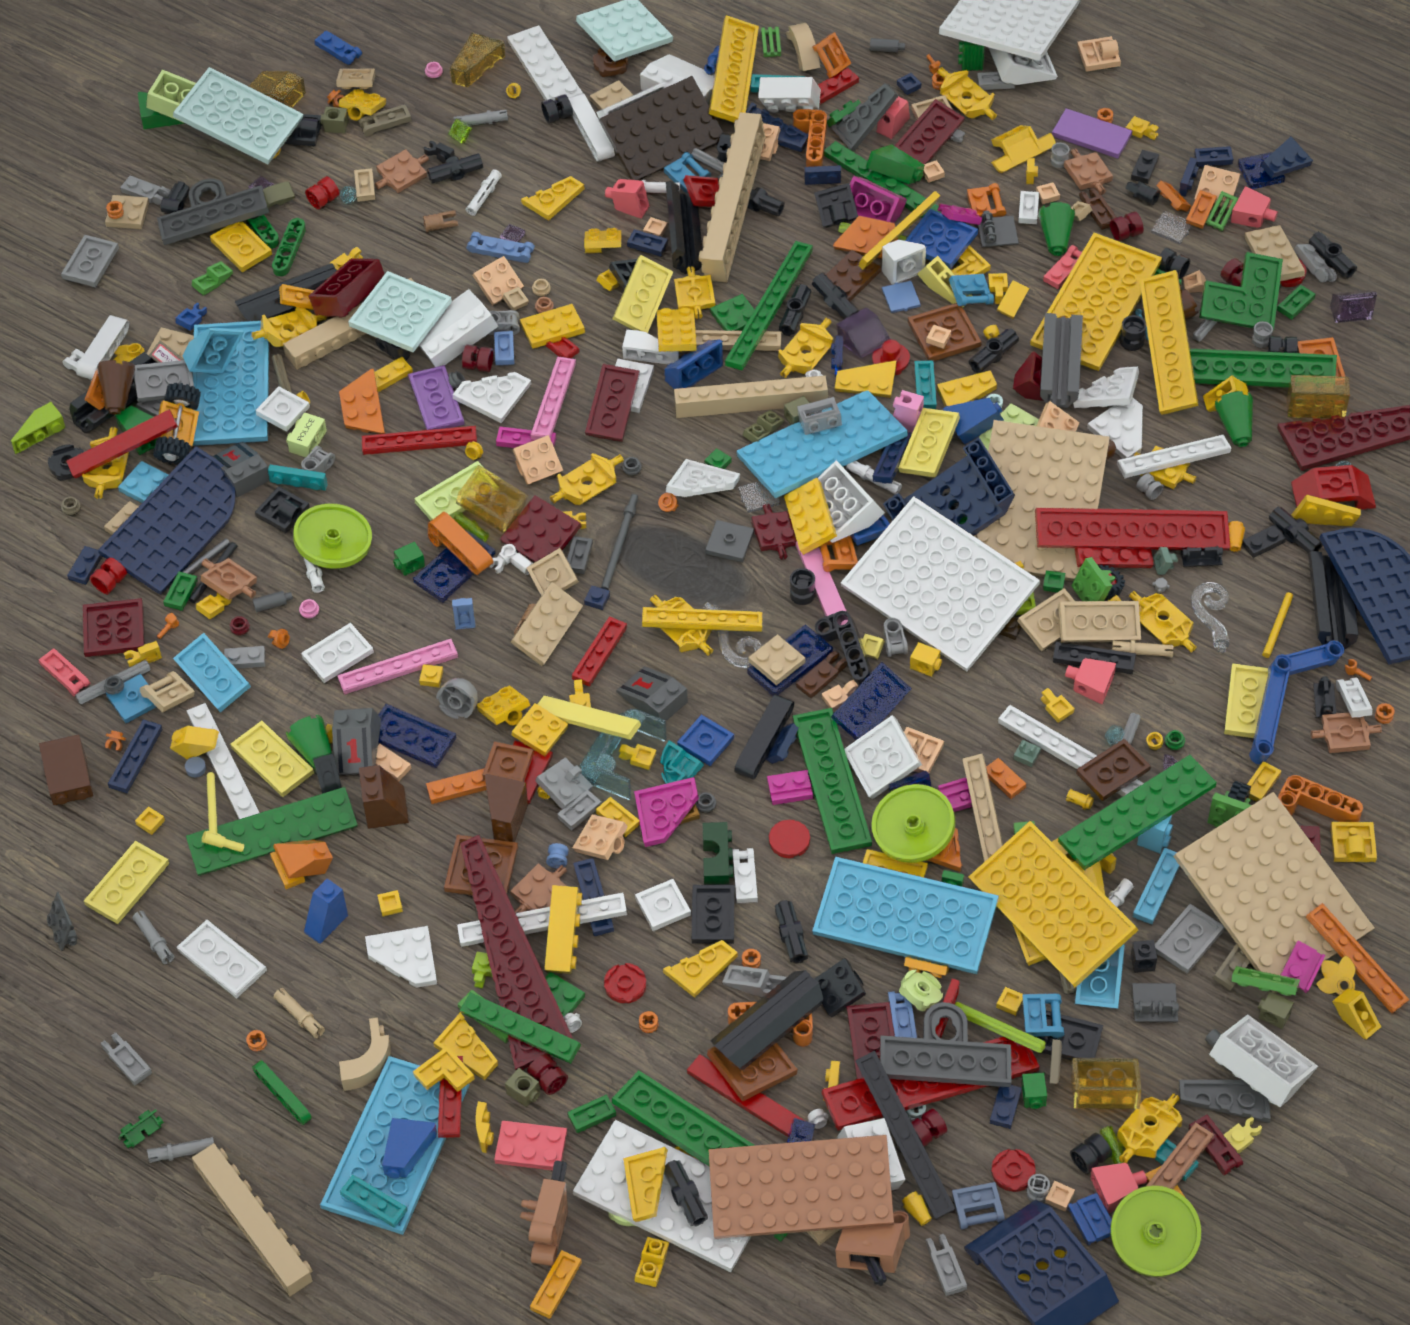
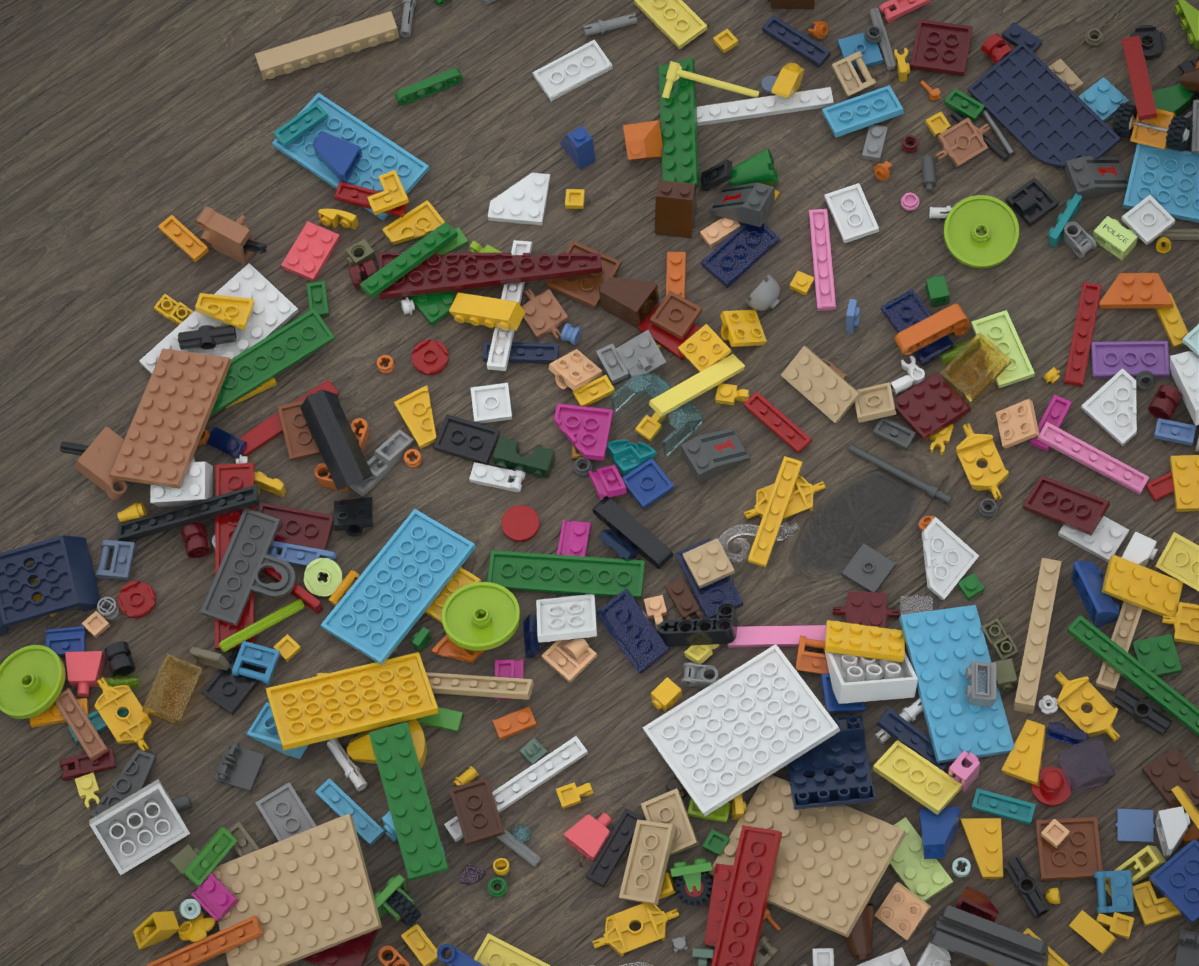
camera: 115 degrees right, 10 degrees up
(106, 478) = (1118, 73): yellow plate -> none
(258, 1046) = (485, 85): orange bush -> none
(272, 758) = (765, 134): light yellow plate -> none
(299, 1013) = (496, 113): tan pin -> none
(369, 1066) = (436, 160): tan arch -> none
(597, 597) = (841, 438): dark blue plate -> none
(719, 770) = (607, 482): none -> dark pink plate
(791, 931) = (424, 495): black piece -> none
(802, 586) = (785, 610): black wheel -> none
(834, 296) = (1137, 757): black piece -> none
(946, 1266) = (75, 519): light grey hinge -> none
(1005, 1106) = (191, 611): dark blue plate -> none
(1034, 1090) = (195, 636): green brick -> none
(1143, 648) = (609, 895): tan pin -> none
(1143, 956) = (282, 770): black brick -> none
(1322, 989) = (194, 906): none -> light aqua tile

